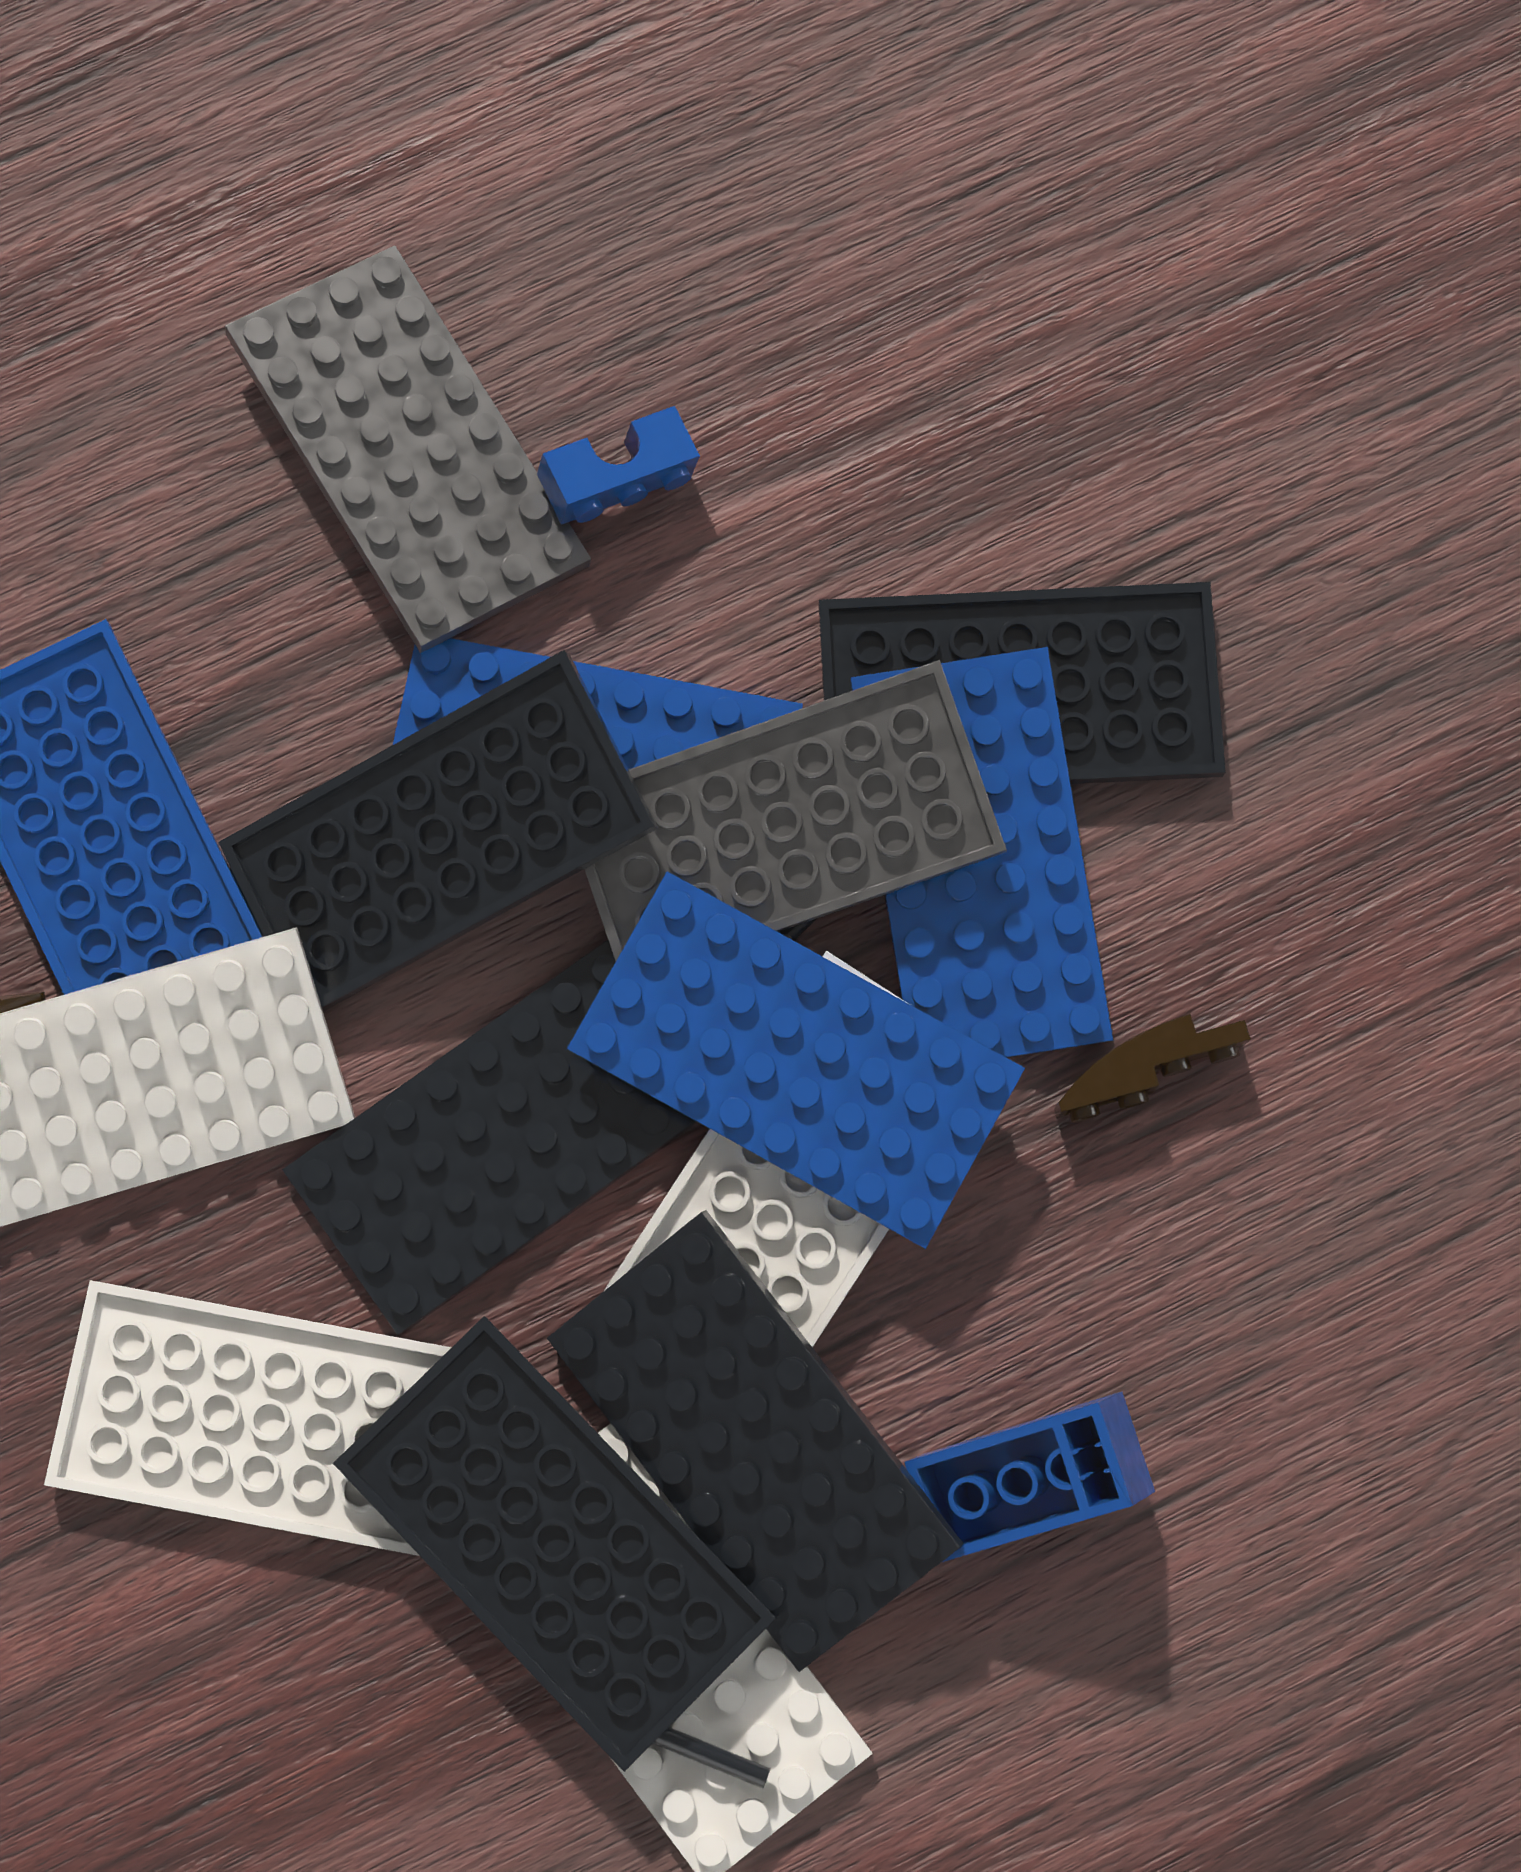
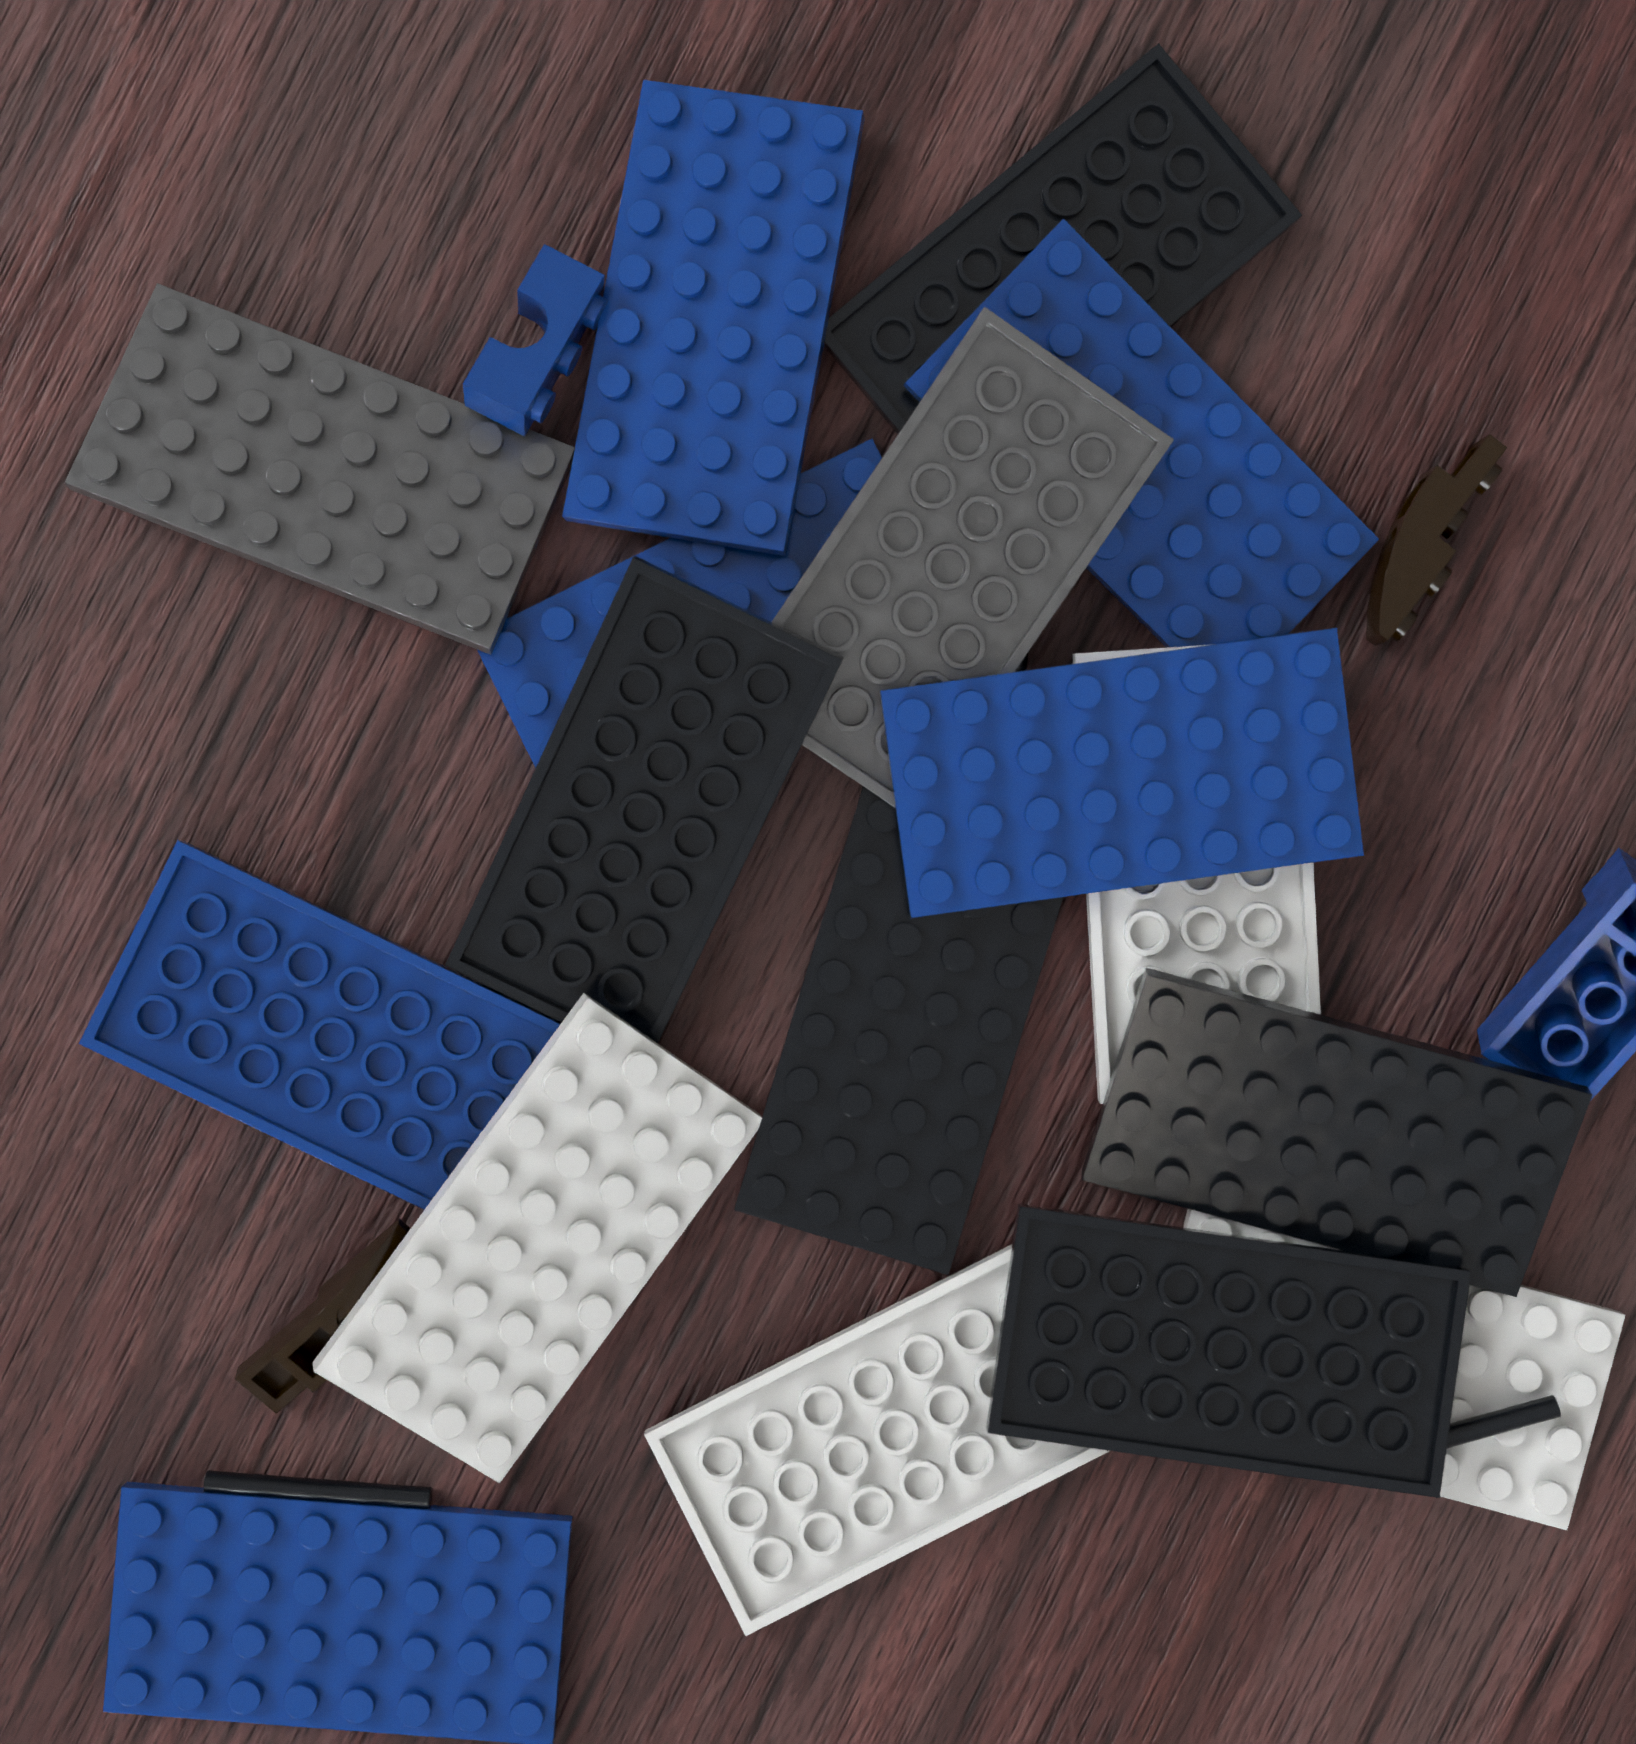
camera: 35 degrees left, 10 degrees up
(754, 542) = (714, 317): none -> blue plate

